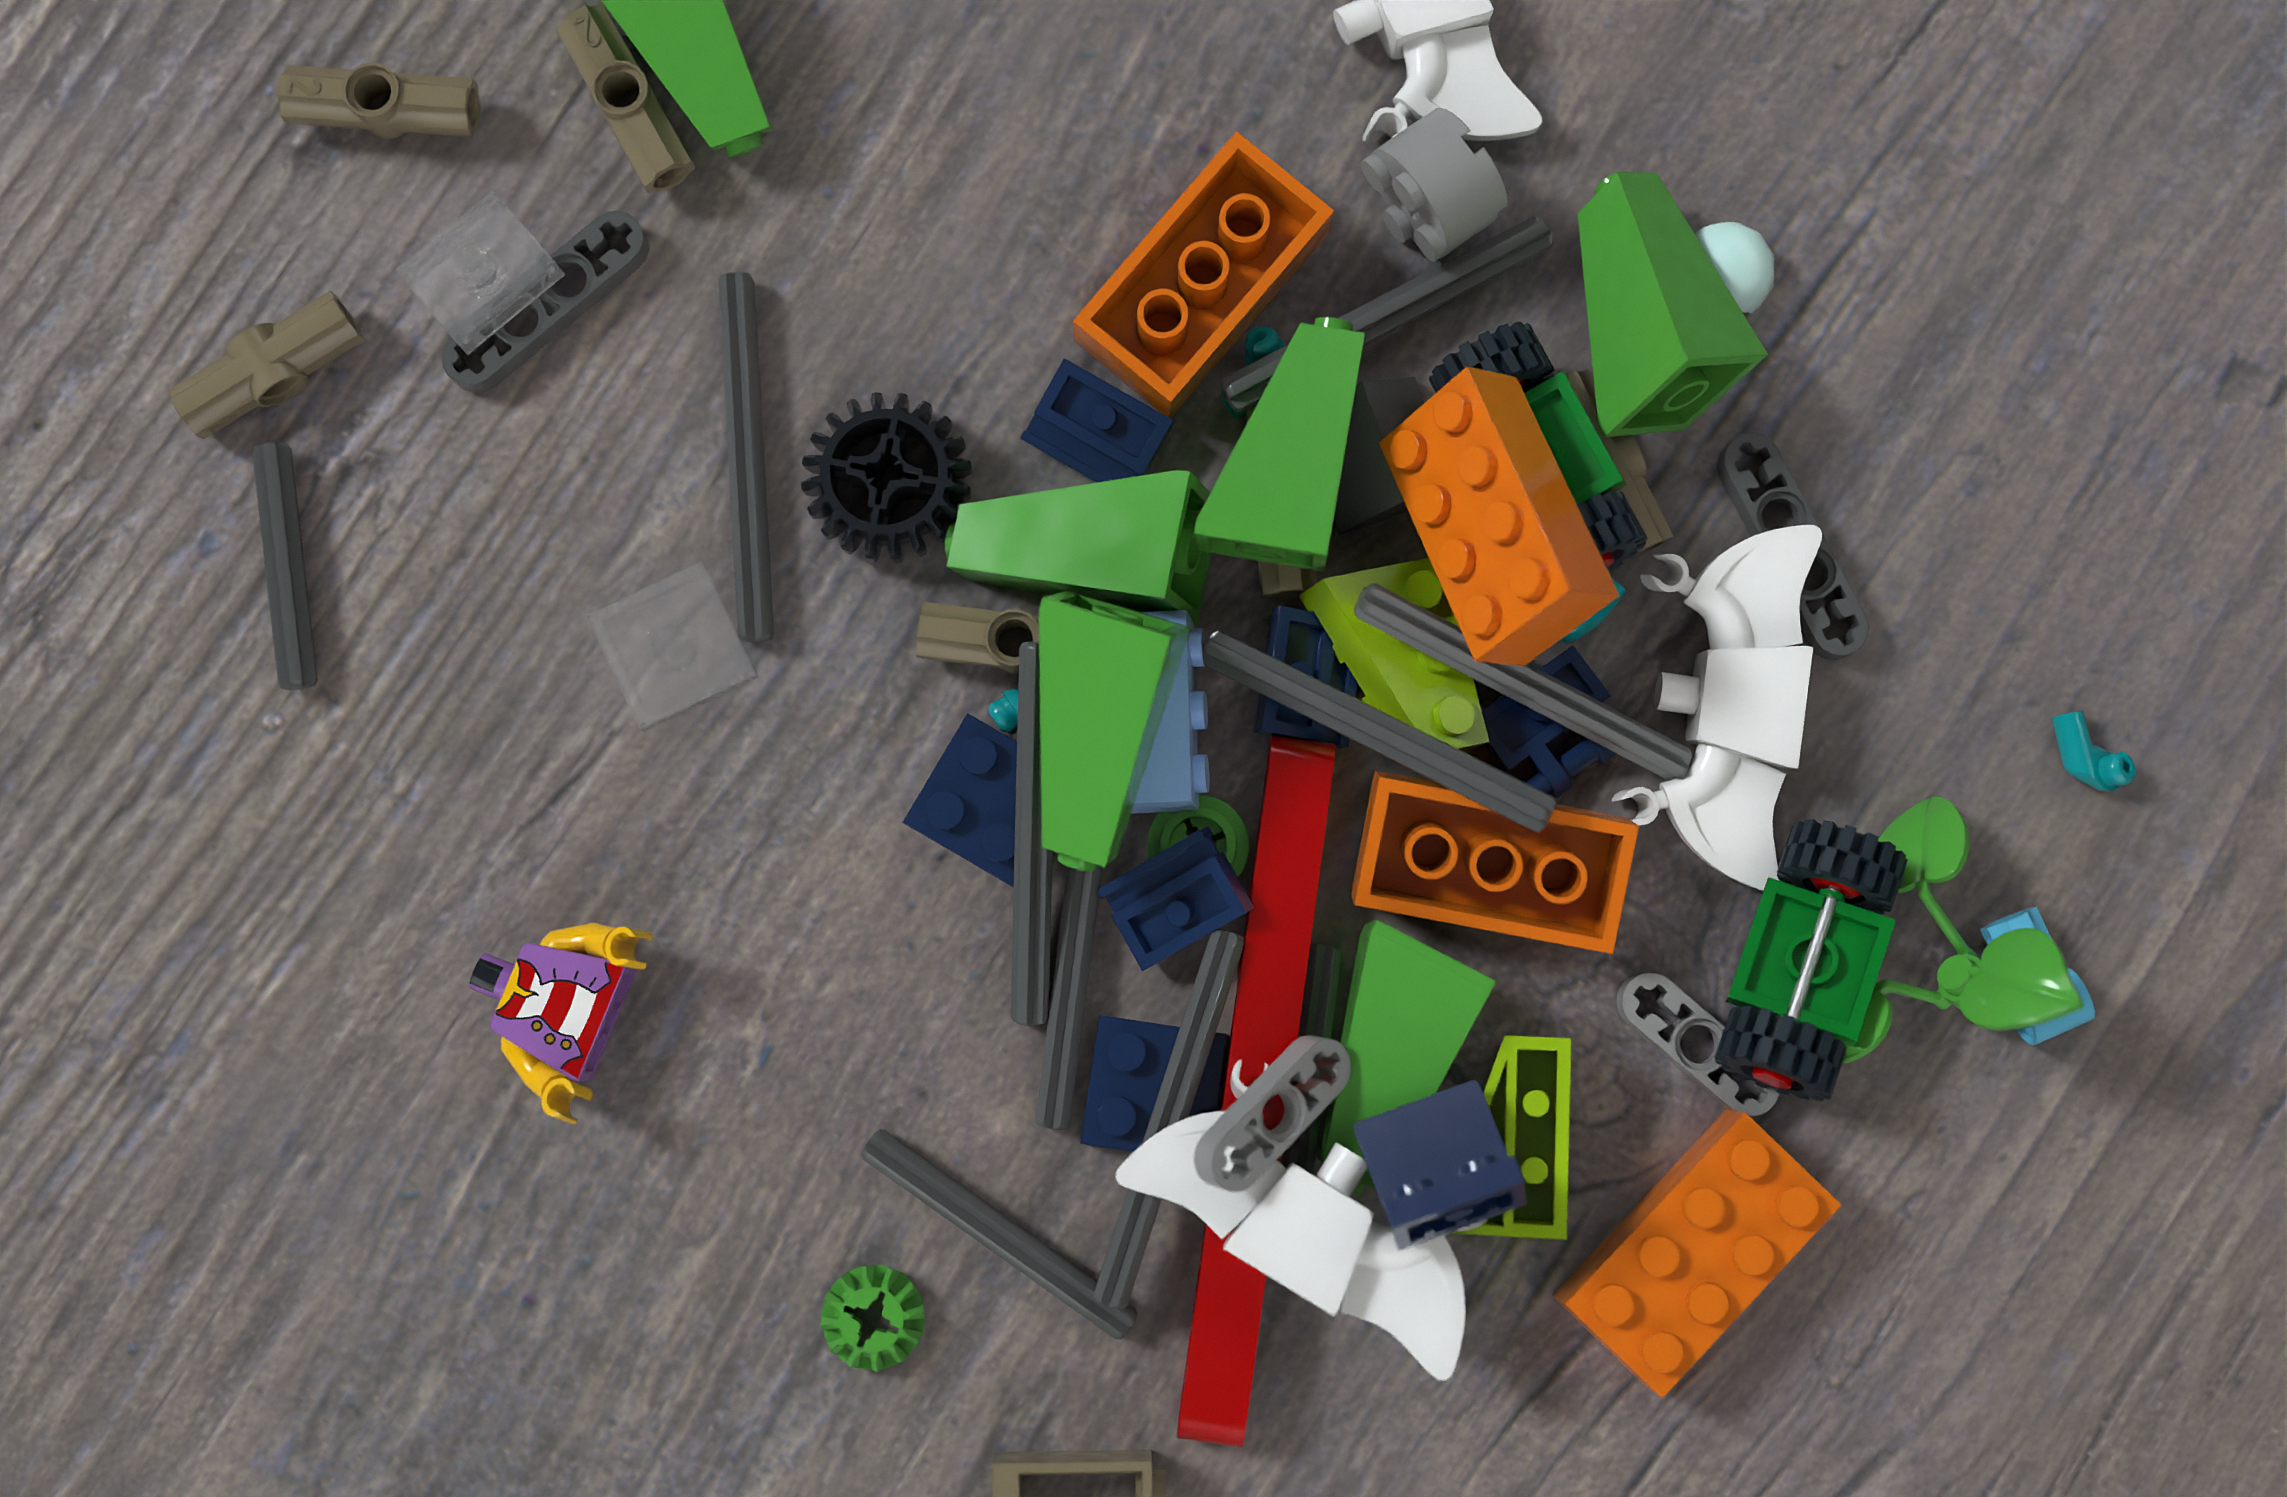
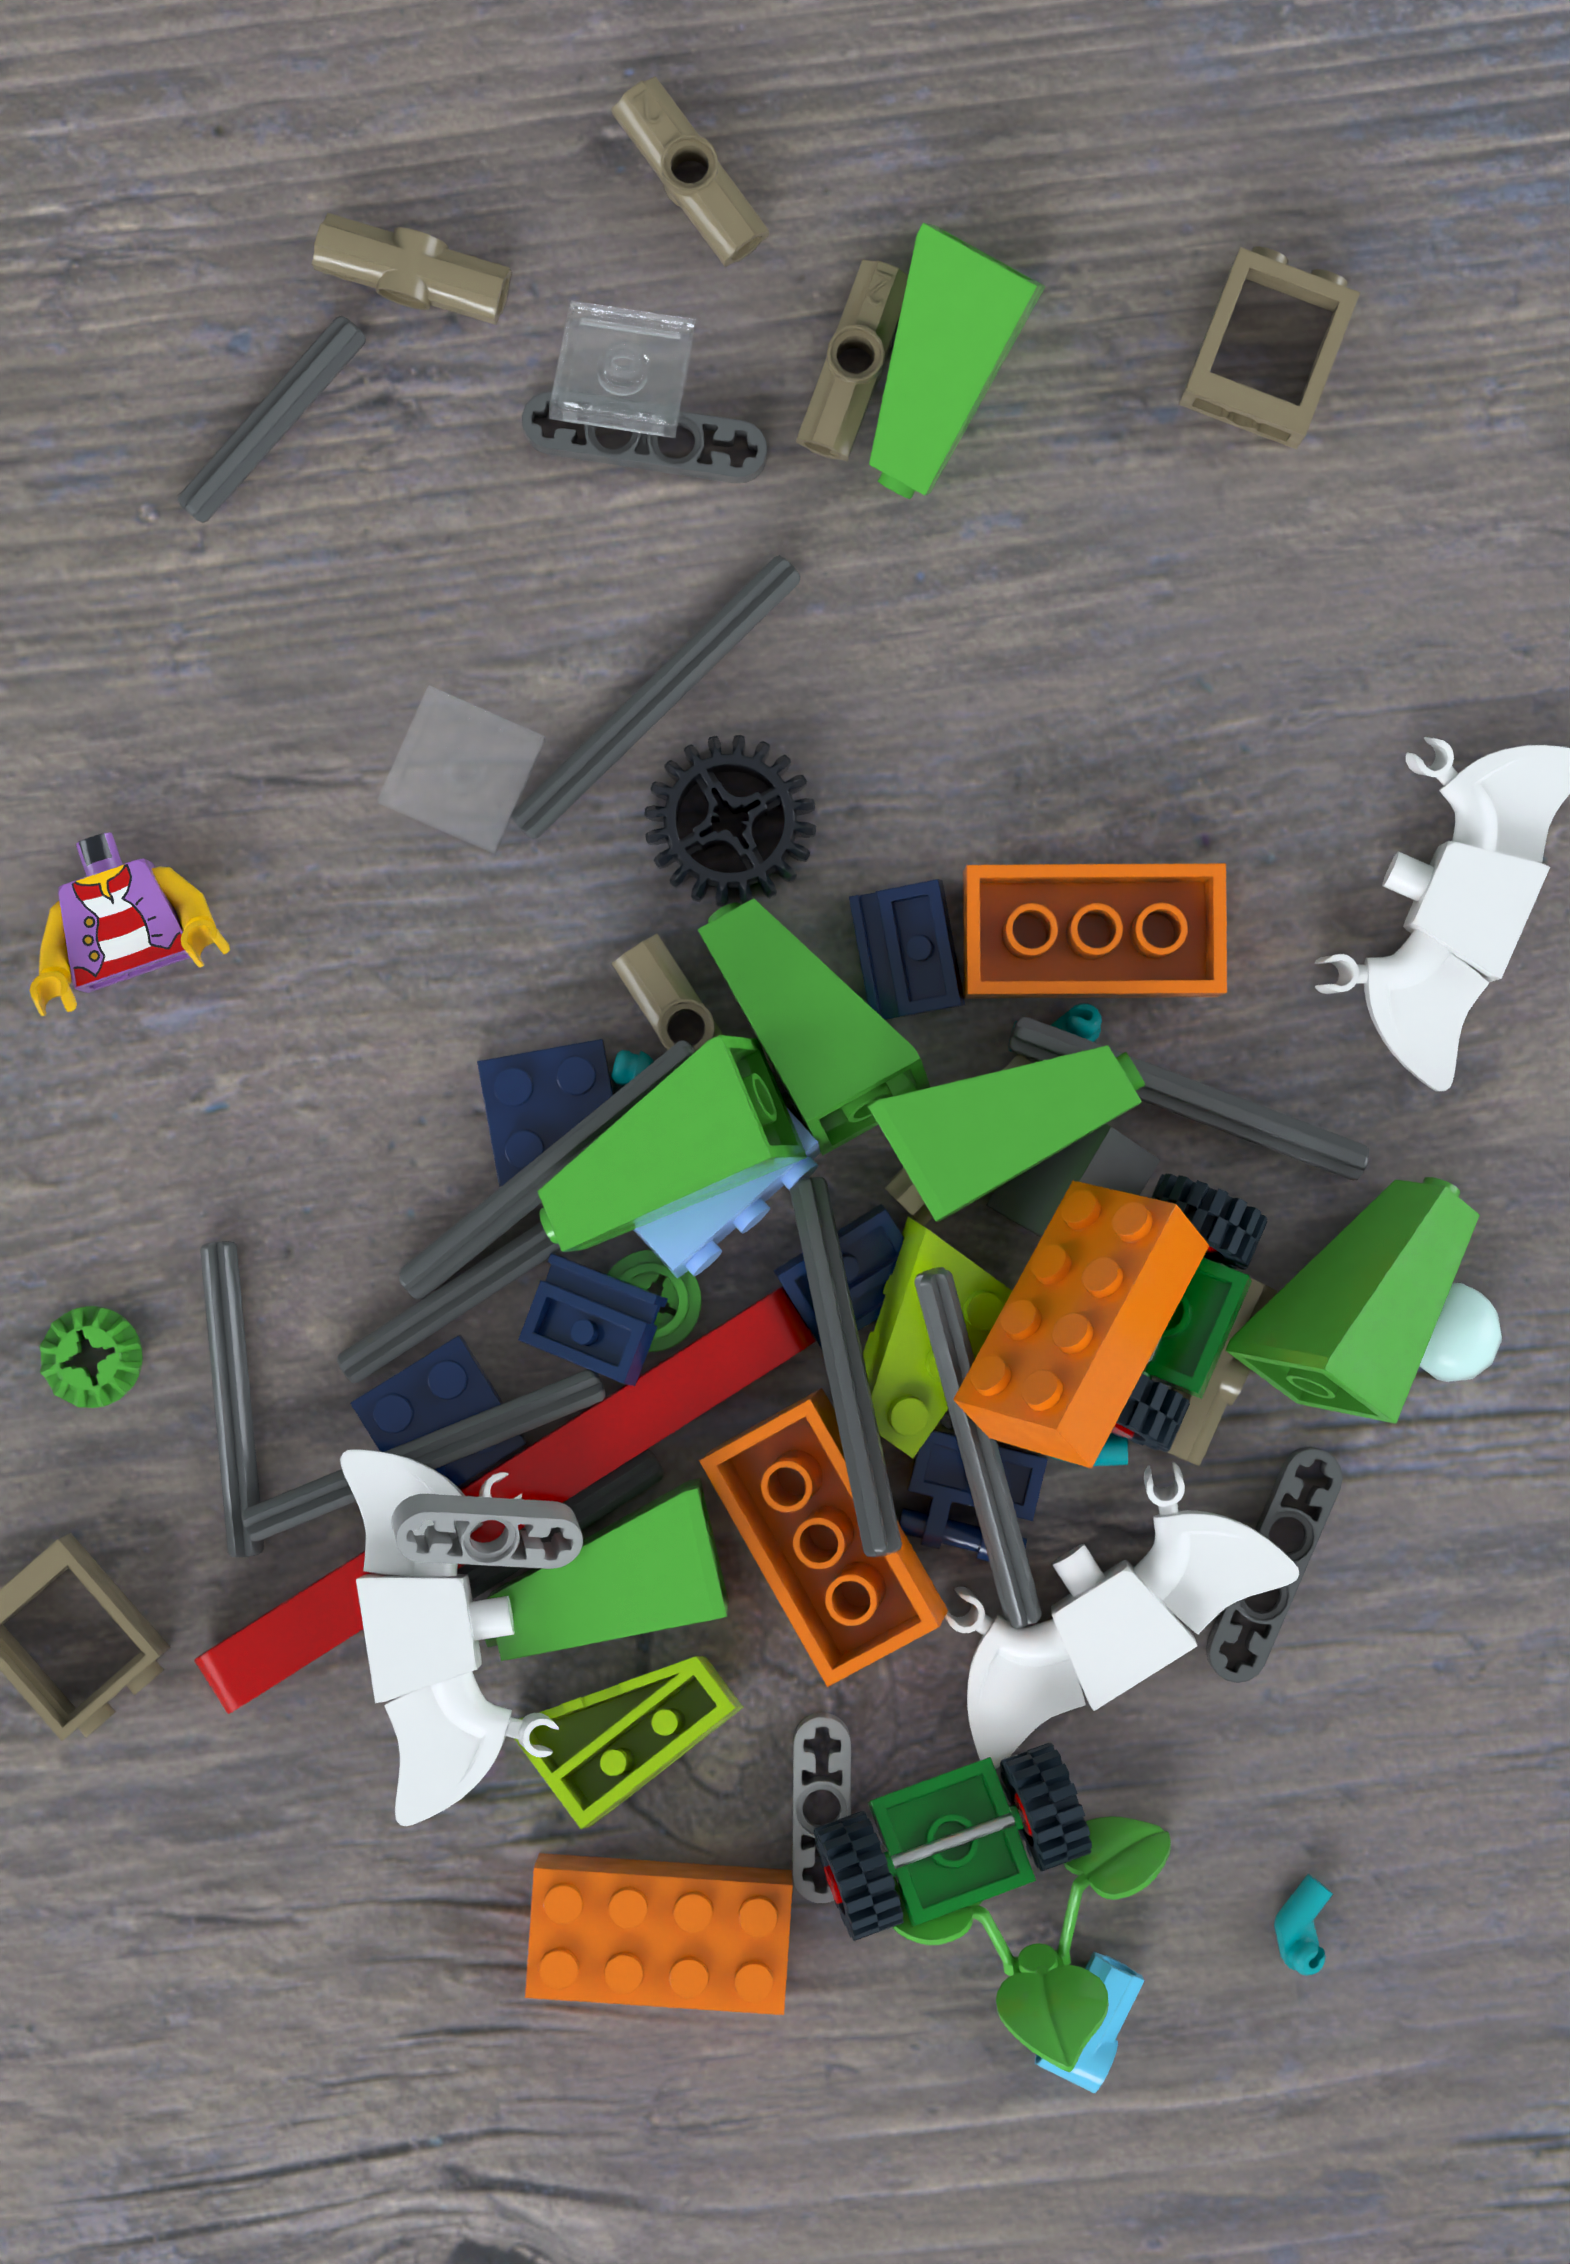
camera: 50 degrees right, 5 degrees up
(1435, 184) = (1318, 1051): light grey brick -> none
(1439, 1164) = (552, 1687): dark blue bracket -> none

